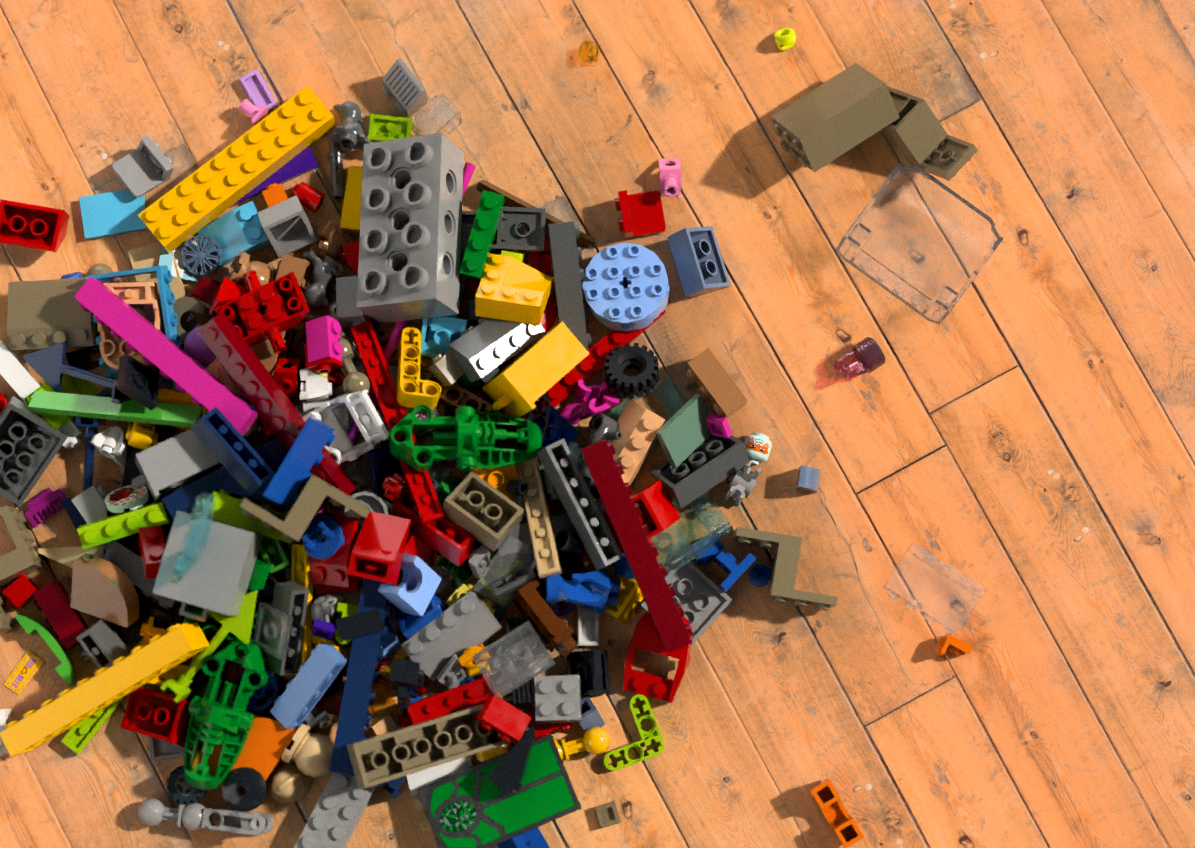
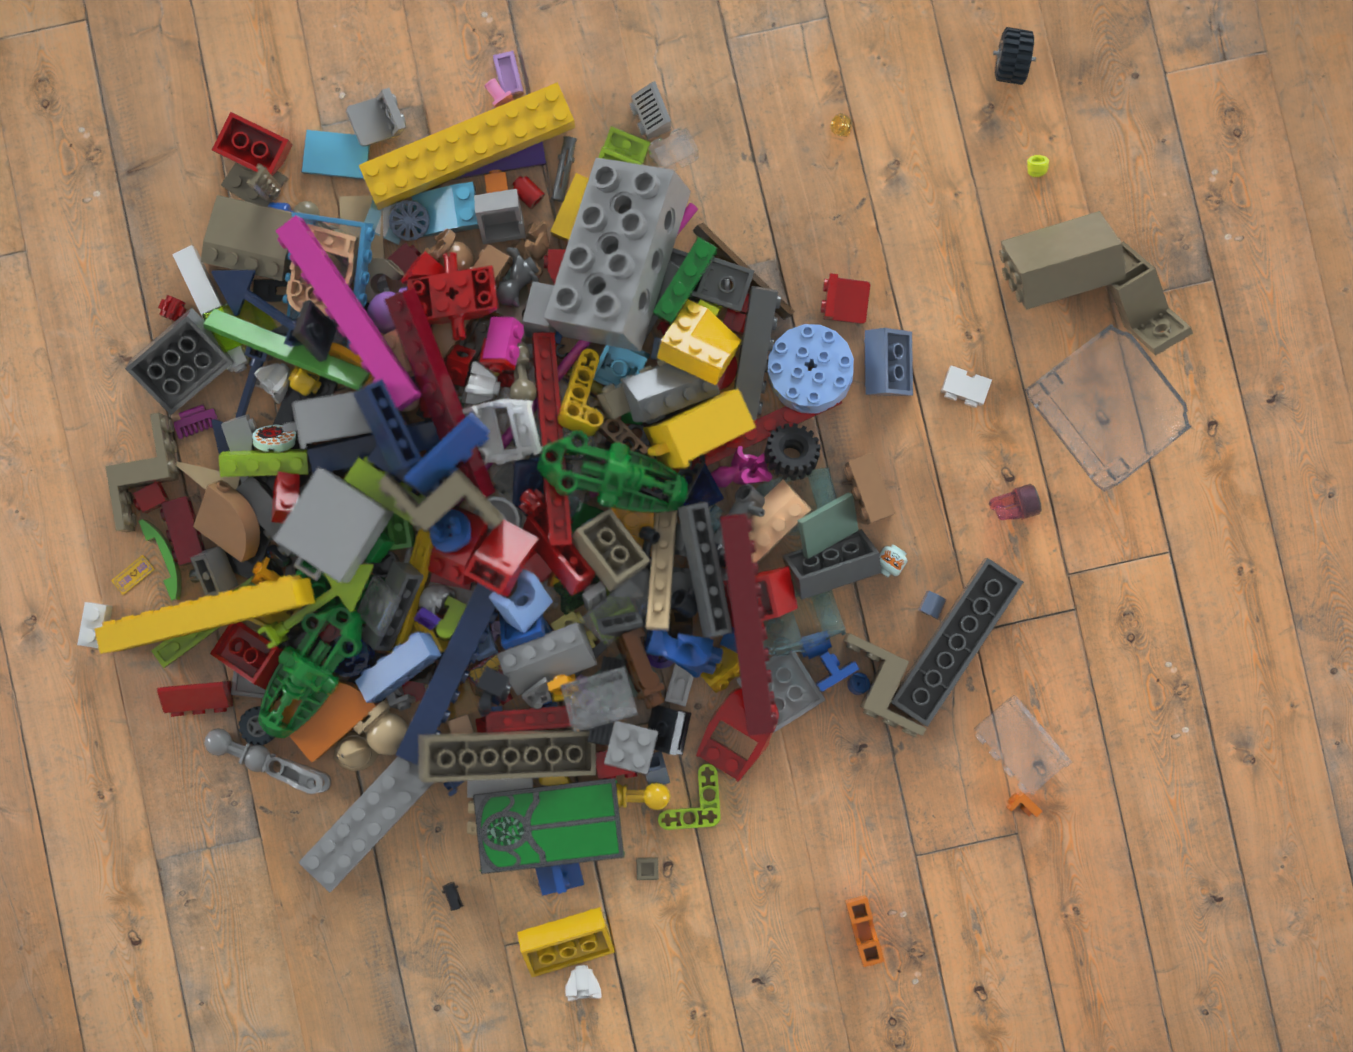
camera: 20 degrees right, 5 degrees up
(42, 264) = (254, 186): none -> dark tan bracket
(117, 774) = (196, 698): none -> red slope
(194, 545) = (336, 492): clear light blue slope -> none
(254, 785) = (321, 744): black dish -> none
(350, 132) = (585, 141): dark grey animal -> none
(360, 624) = (462, 624): black tile -> none
(503, 718) = (574, 752): brick -> none
(513, 766) = (569, 801): black slope -> none
(670, 177) = (884, 272): bright pink bracket -> none
(719, 426) = (861, 529): dark pink tile -> none
(743, 483) = (867, 592): light grey pin -> none
(778, 264) = (970, 389): none -> white brick
(841, 507) = (956, 641): none -> dark grey brick

